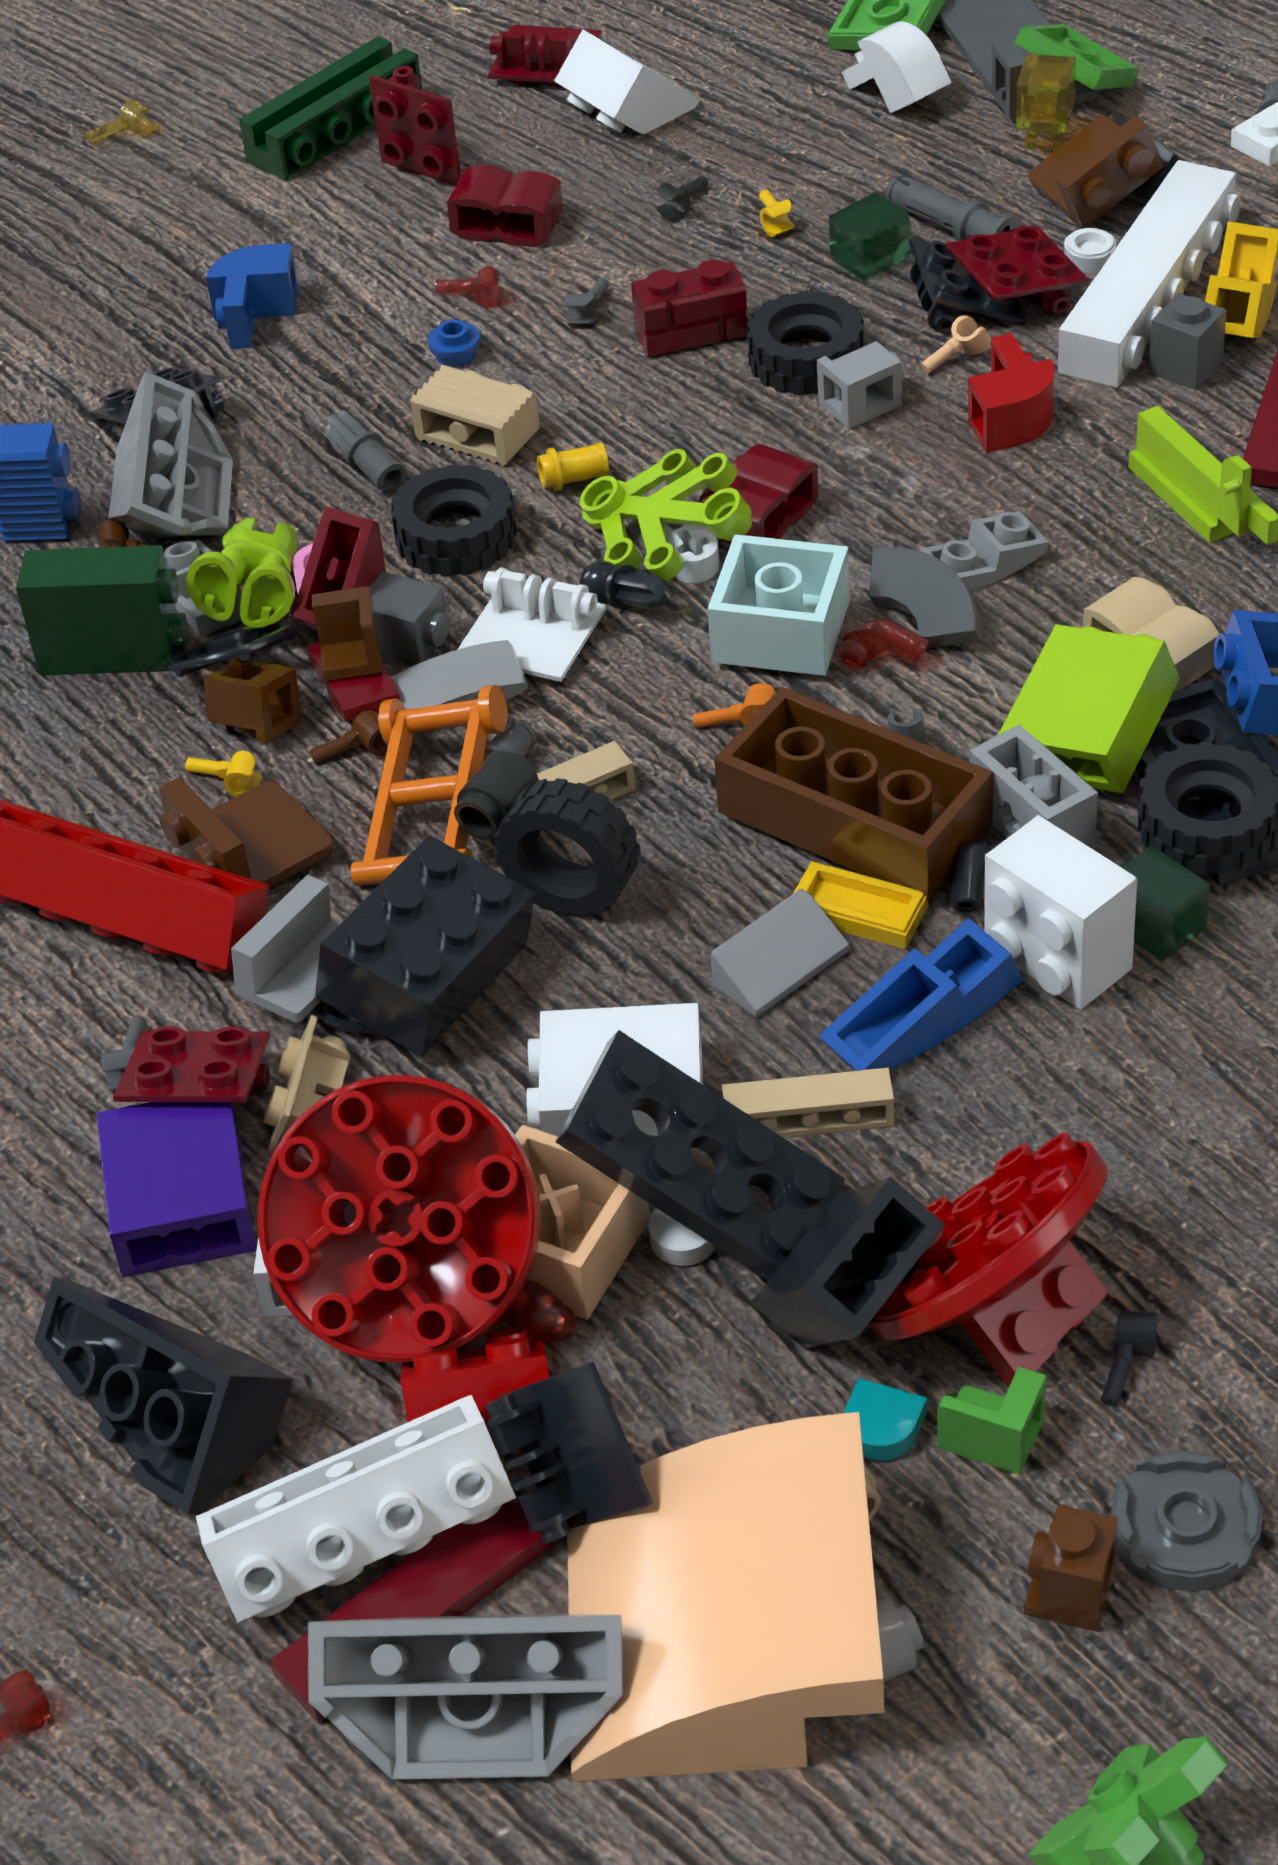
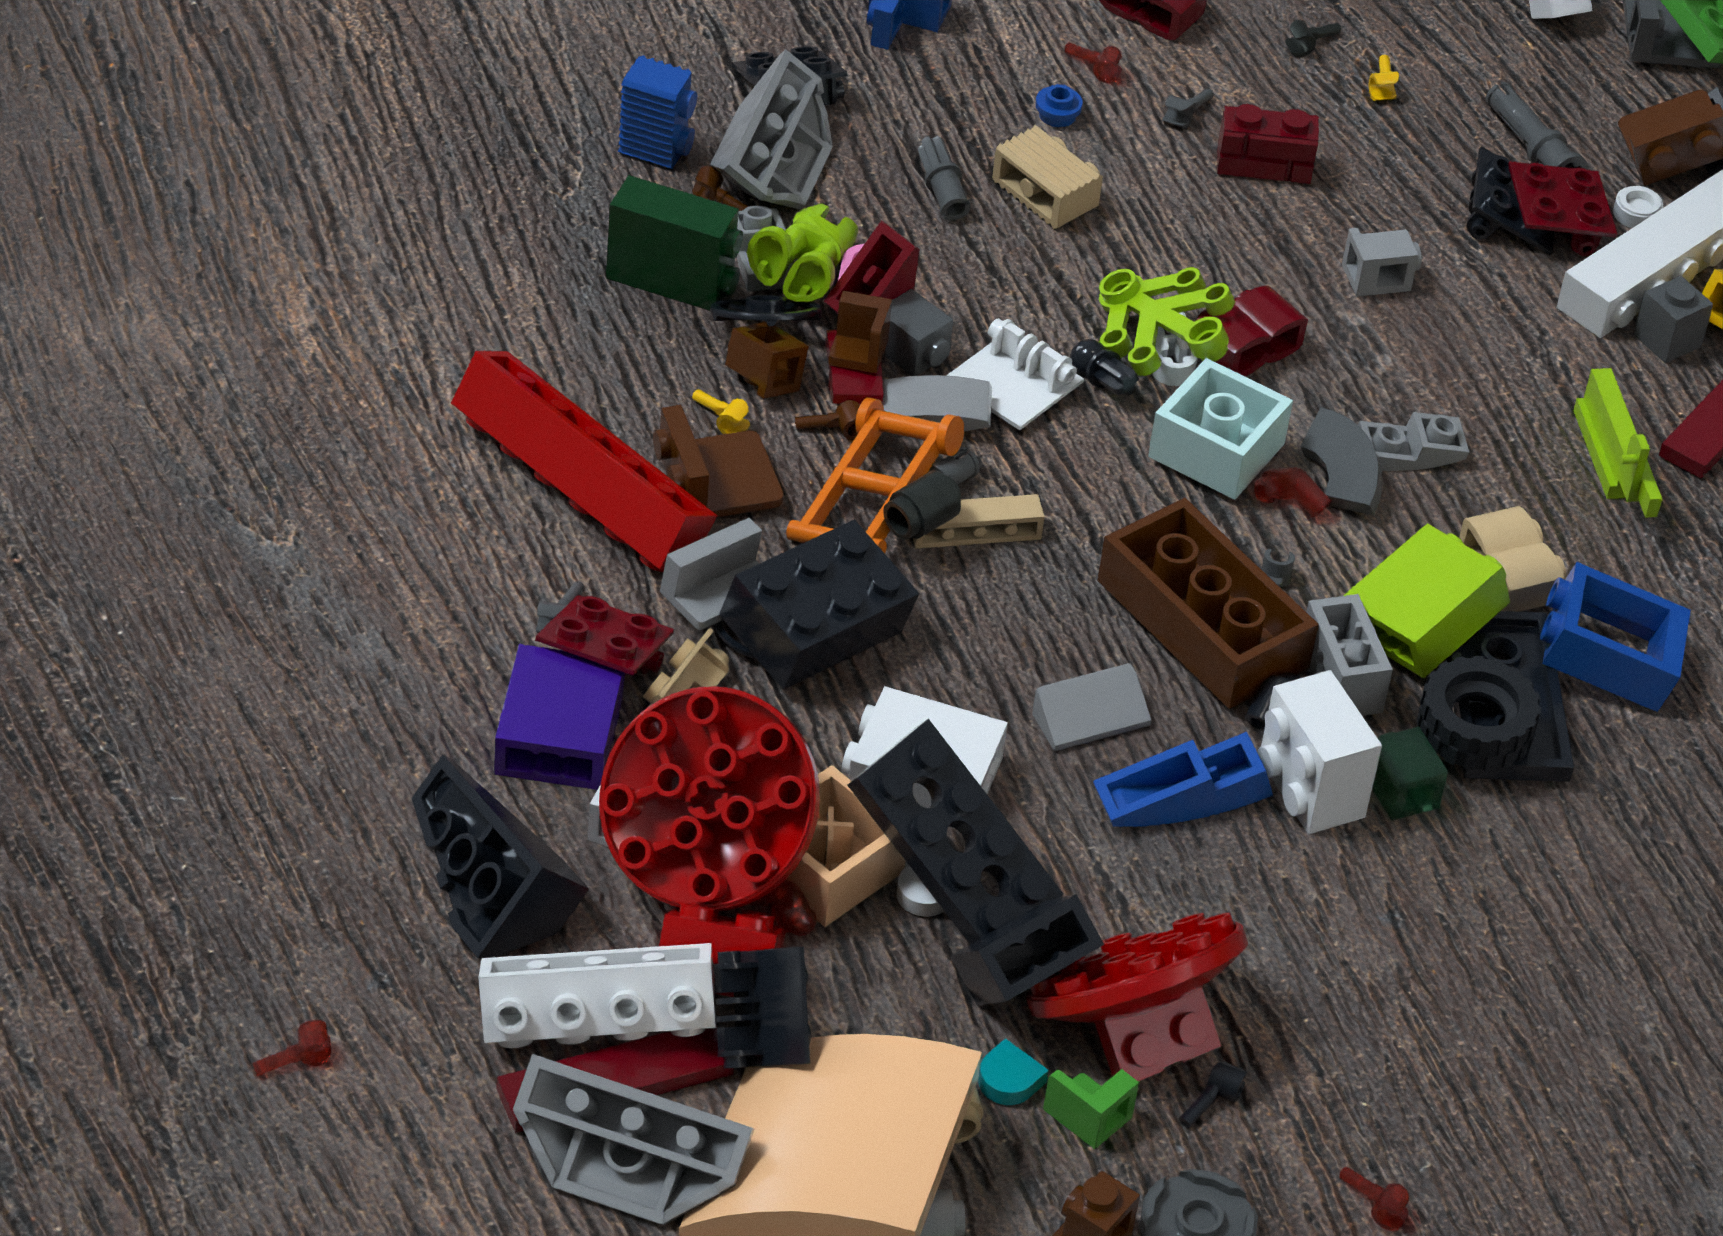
camera: 10 degrees right, 0 degrees up
(458, 548) = (988, 289): black tyre -> none
(572, 465) = (1108, 249): yellow pin -> none
(585, 819) = (979, 550): black tyre -> none
(754, 700) = (1148, 505): orange hand -> none
(795, 318) = (1350, 182): black tyre -> none
(818, 1102) = (1067, 830): tan piece -> none
(865, 904) = (1178, 693): yellow tile -> none
(869, 236) = (1452, 129): clear green brick -> none
(961, 339) = (1490, 248): light nougat hand -> none
(1012, 400) = (1501, 321): red brick -> none
(1045, 97) = (1661, 55): clear yellow brick -> none

